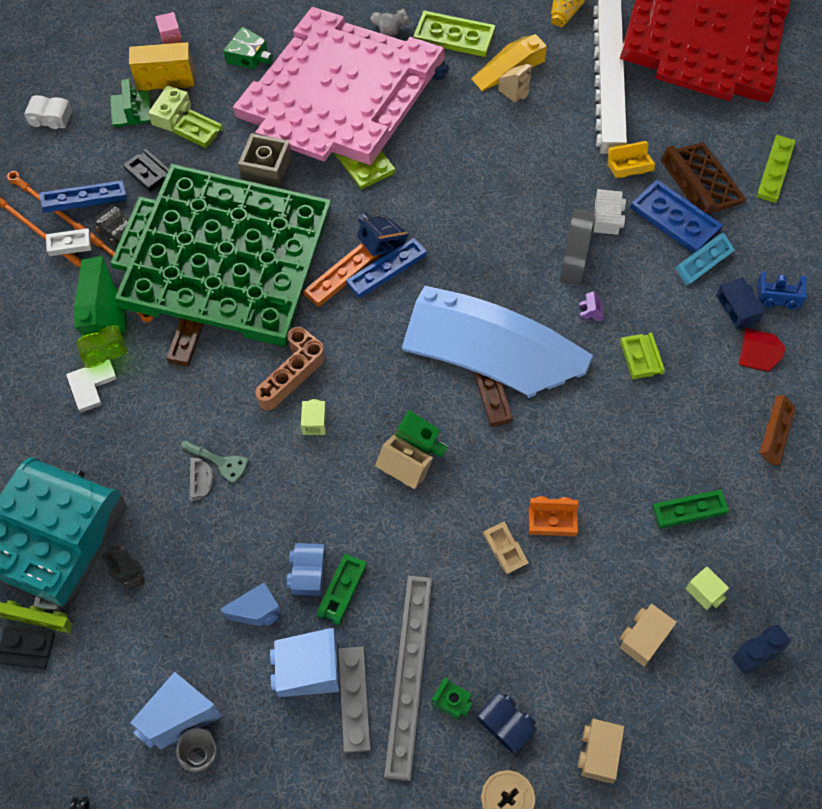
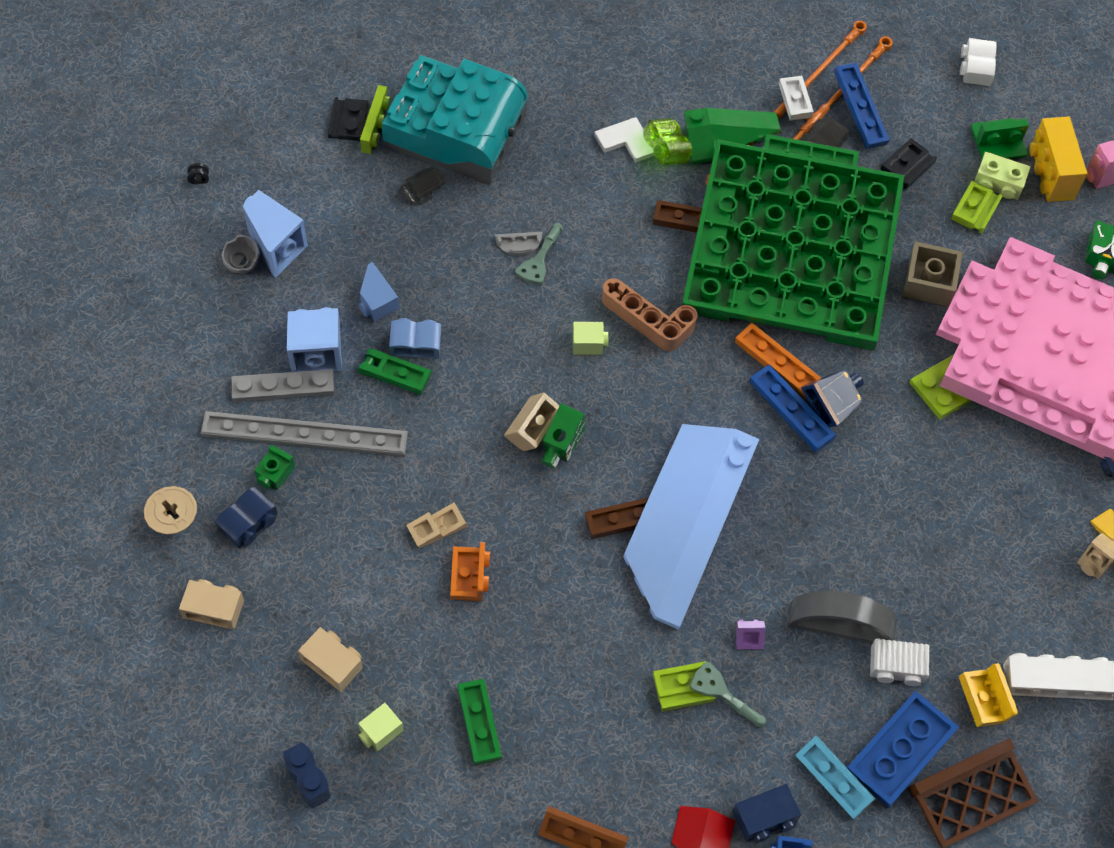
camera: 85 degrees right, 0 degrees up
(645, 328) = (720, 690): none -> sand green piece

